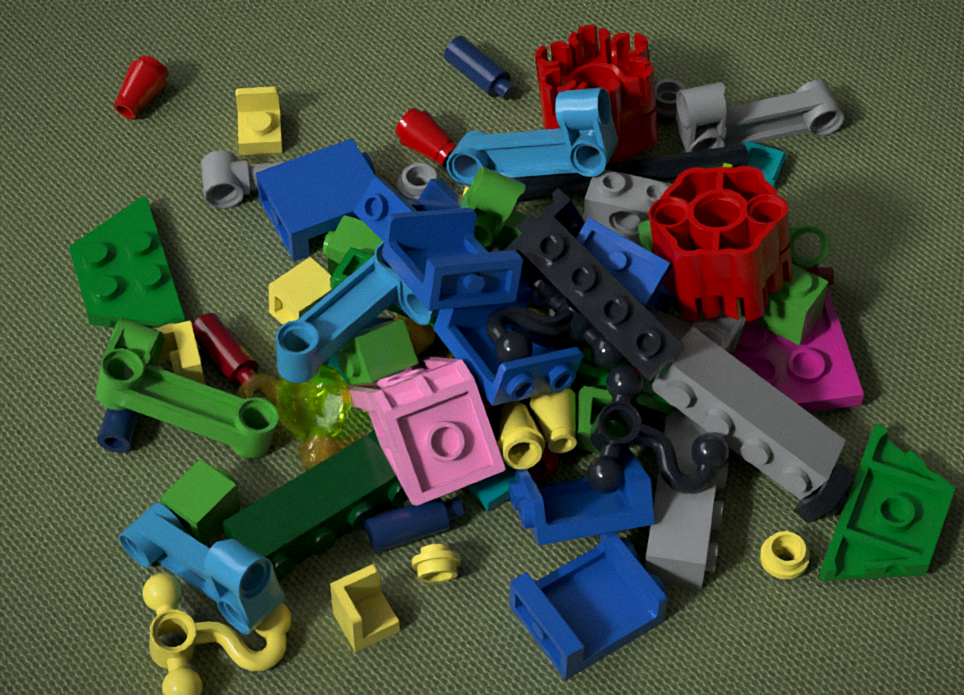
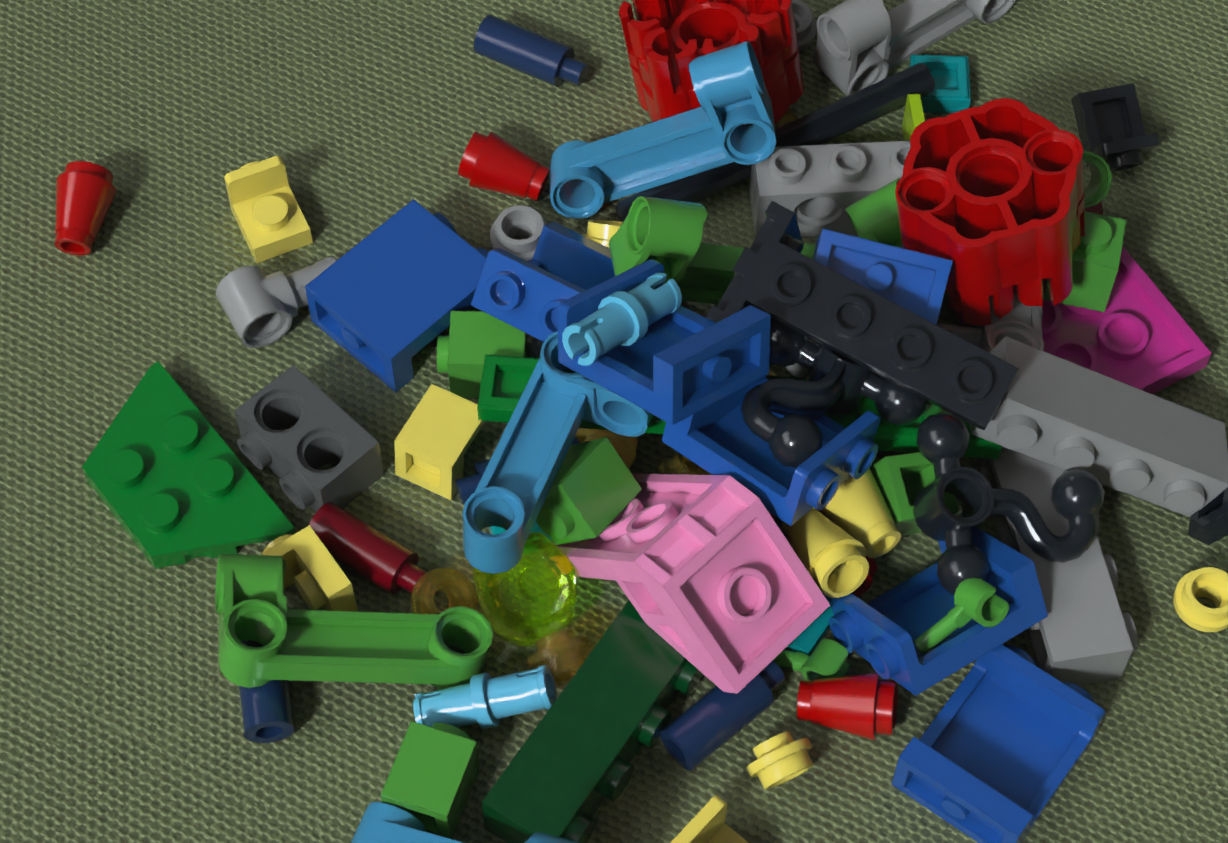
camera: 20 degrees left, 5 degrees up
(217, 273) = (319, 436): none -> dark grey brick
(259, 463) = (487, 699): none -> medium azure pin
(428, 236) = (621, 319): none -> medium azure pin
(493, 516) = (824, 662): none -> bright green hand
(501, 544) = (850, 704): none -> red cone
(597, 491) = (972, 600): none -> bright green hand
(867, 227) = (1113, 126): none -> black bracket

